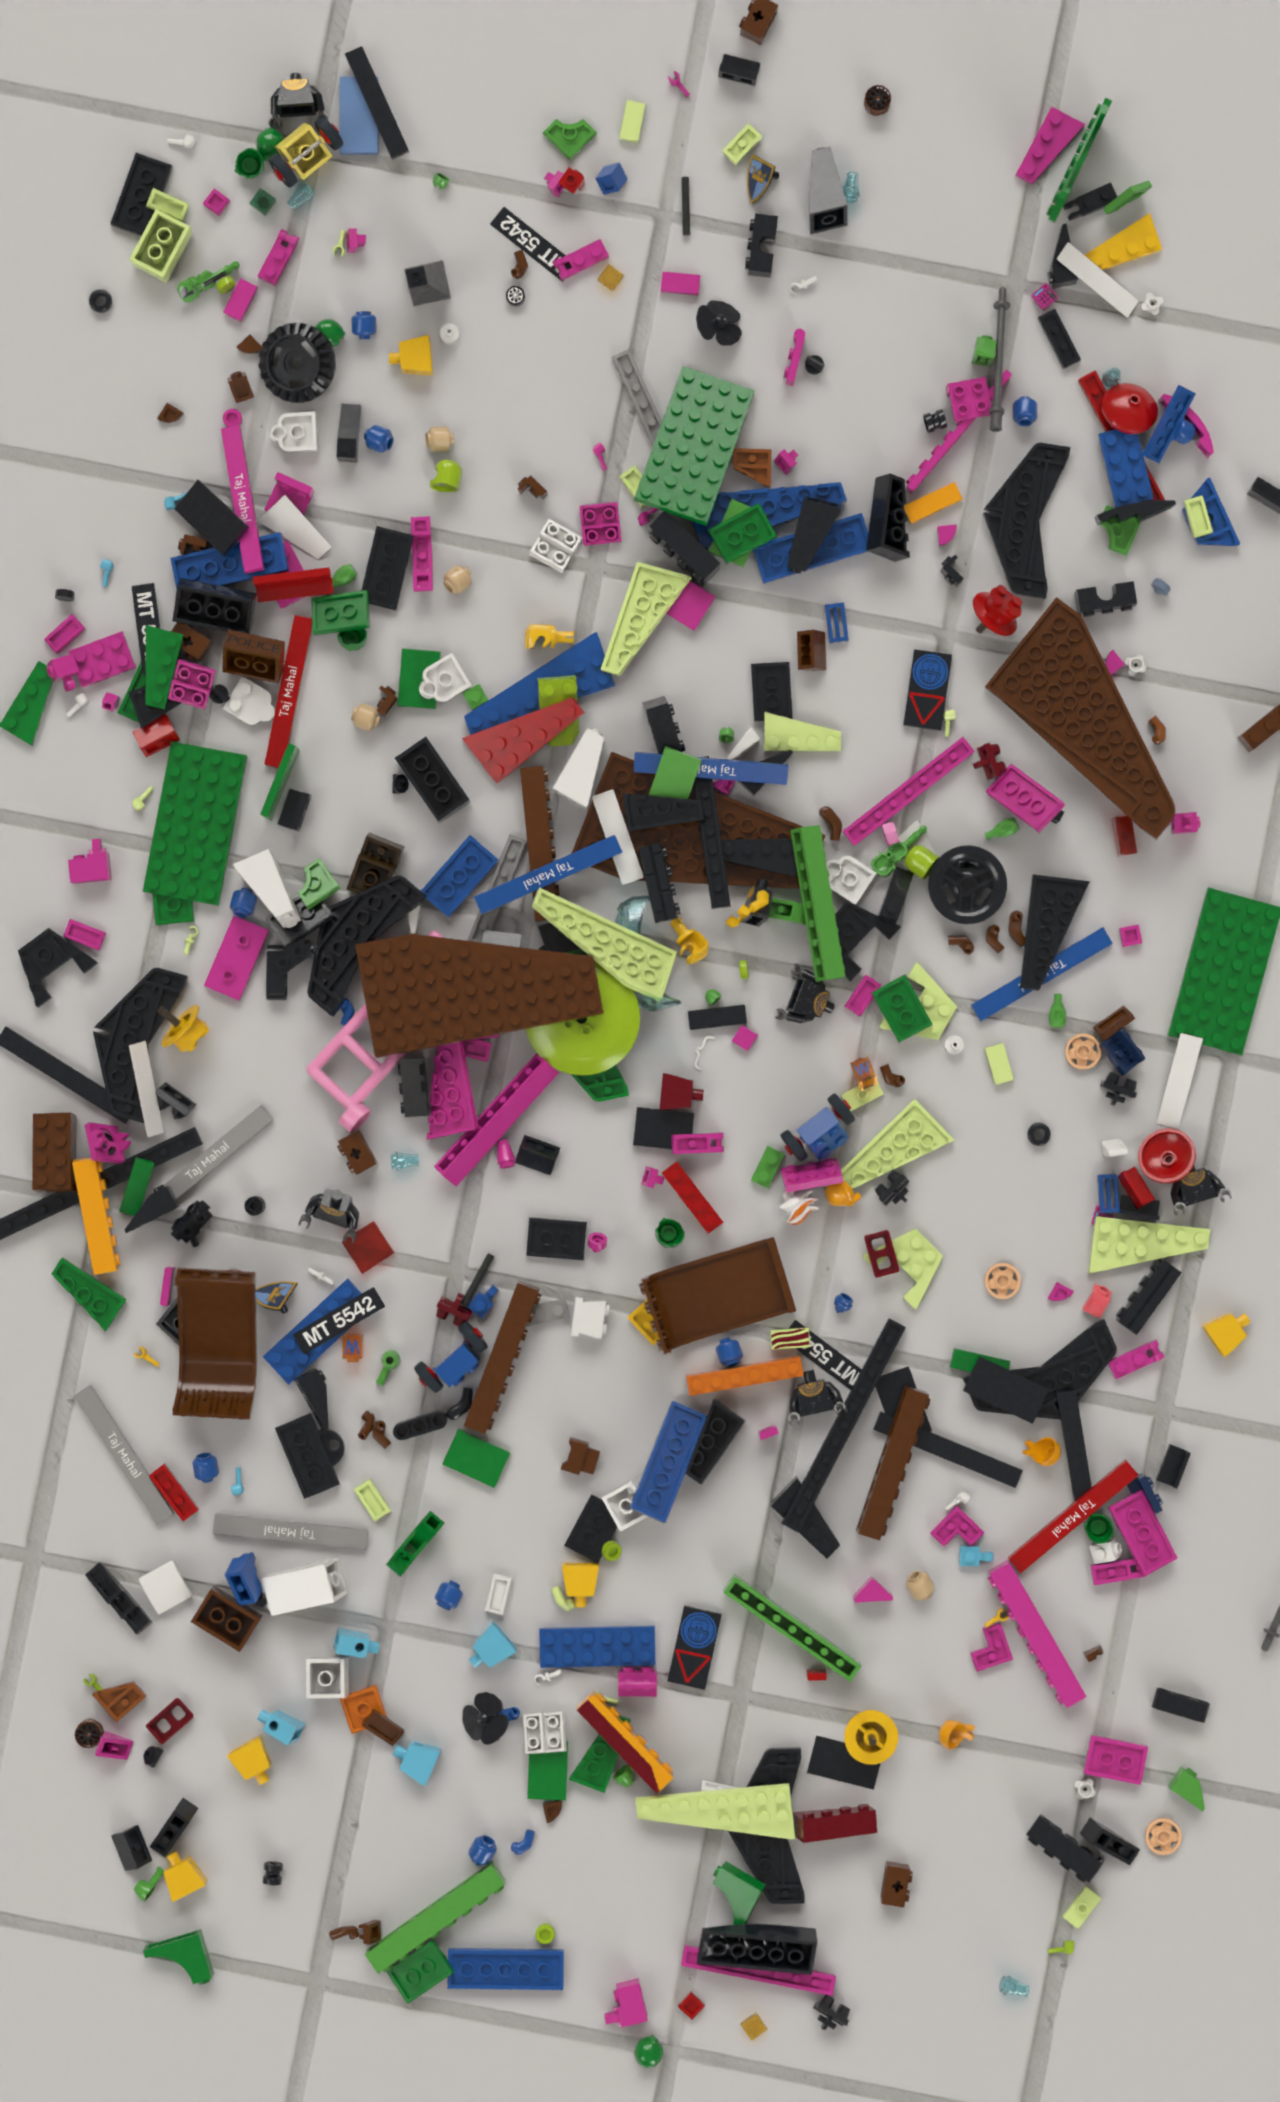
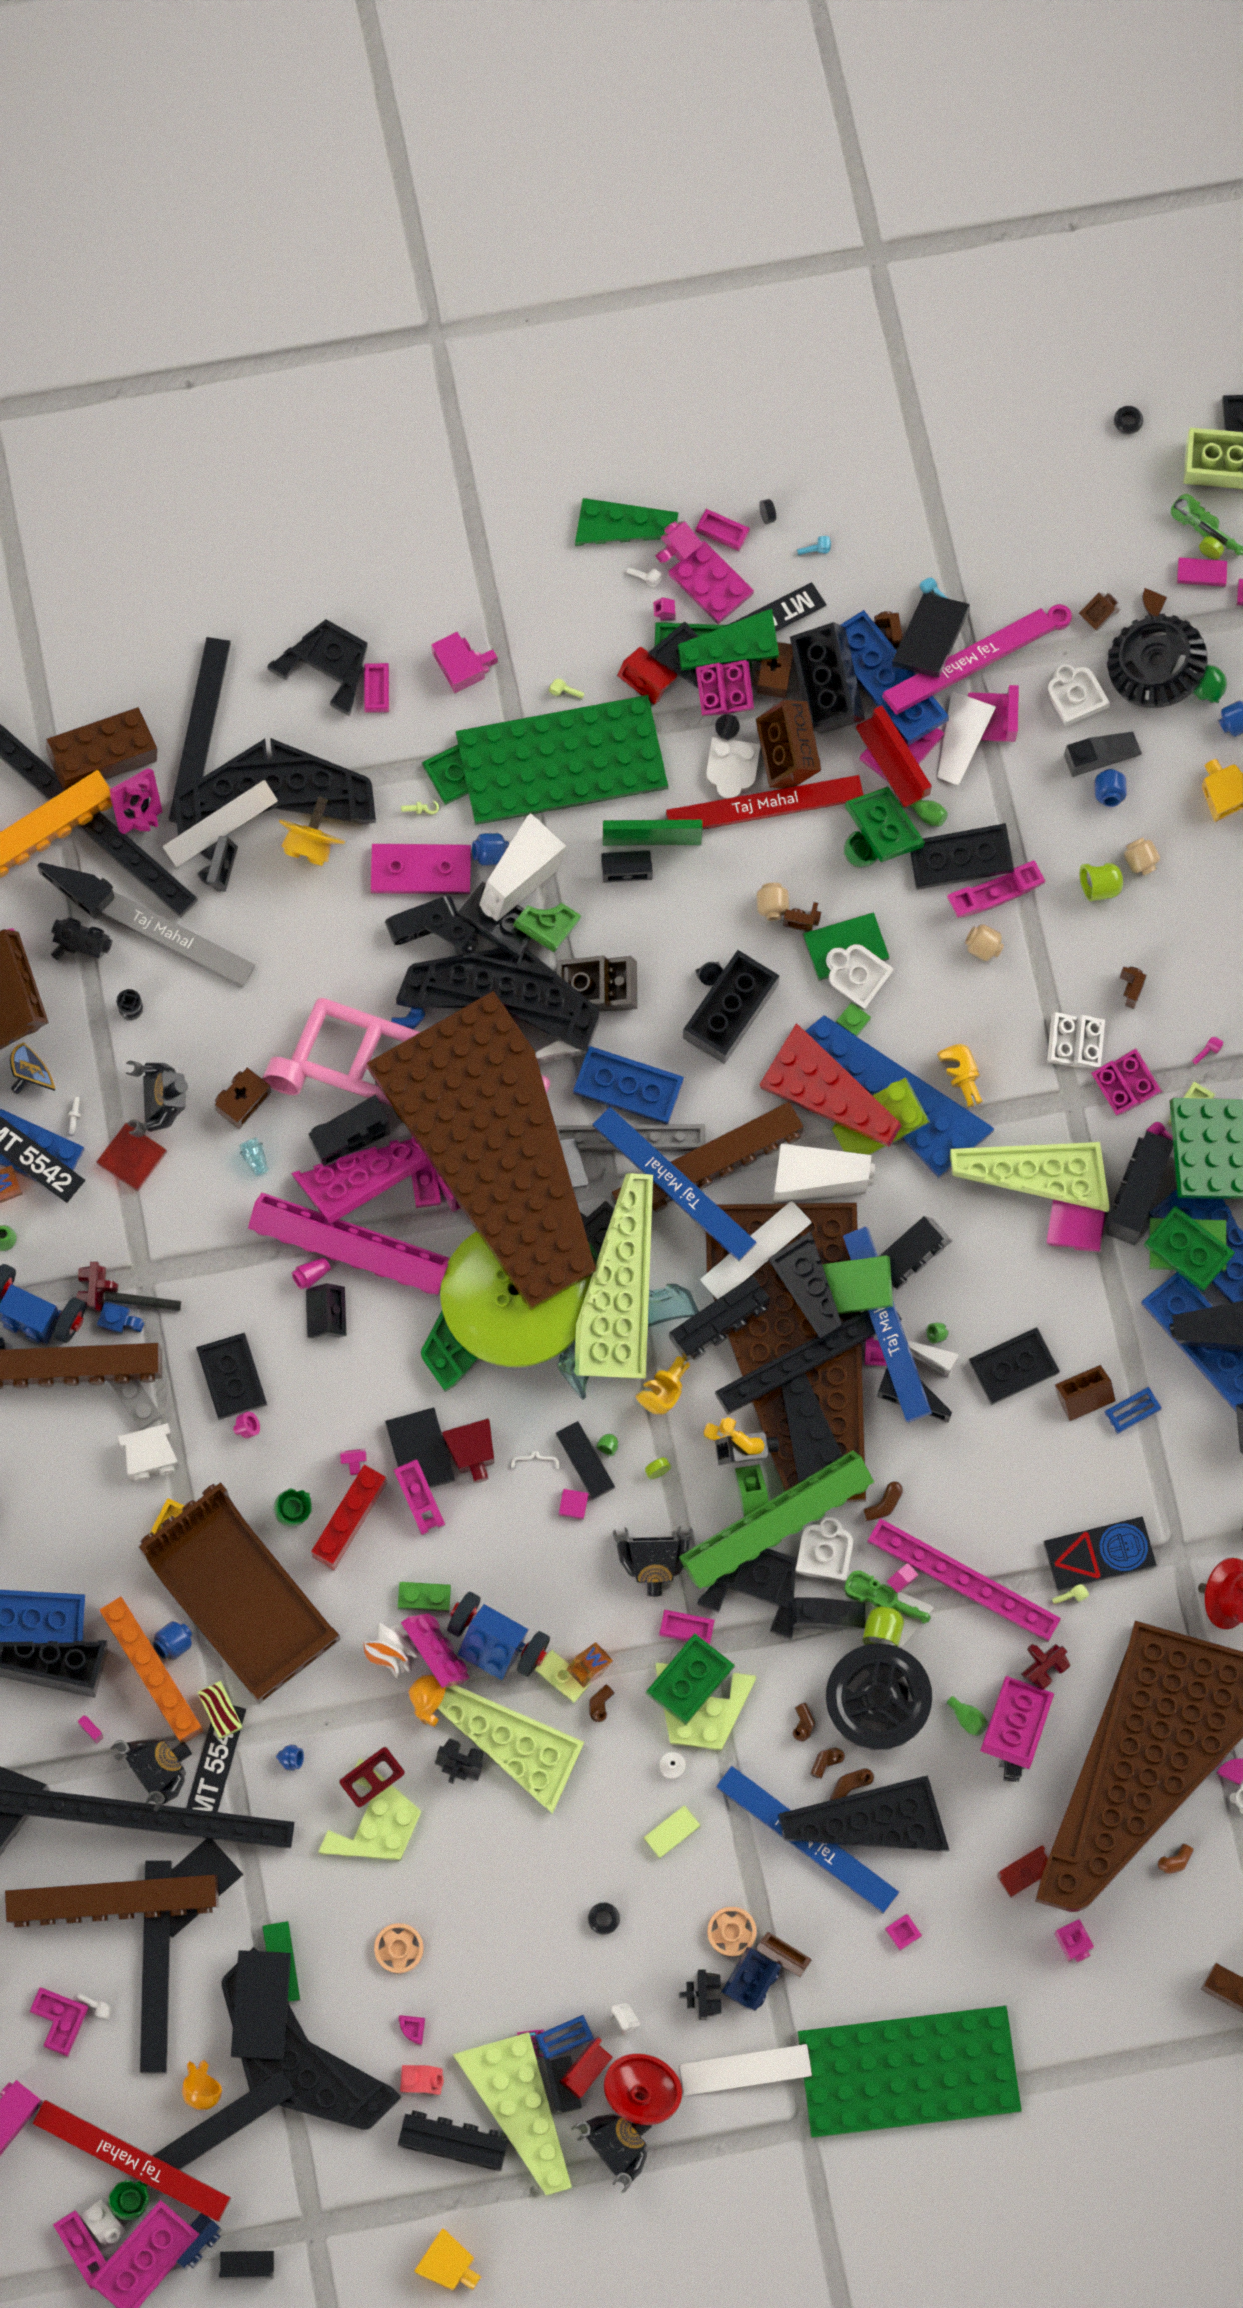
camera: 65 degrees right, 15 degrees down
(136, 1186) = (100, 858): green tile -> none
(169, 414) = (1032, 546): reddish brown tile -> none
(794, 735) = (973, 1416): yellowish green wing -> none
(971, 1556) = (31, 2052): medium azure plate -> none
(1057, 1013) = (766, 1878): bright green piece -> none
(1135, 1359) = (365, 2160): dark pink plate -> none

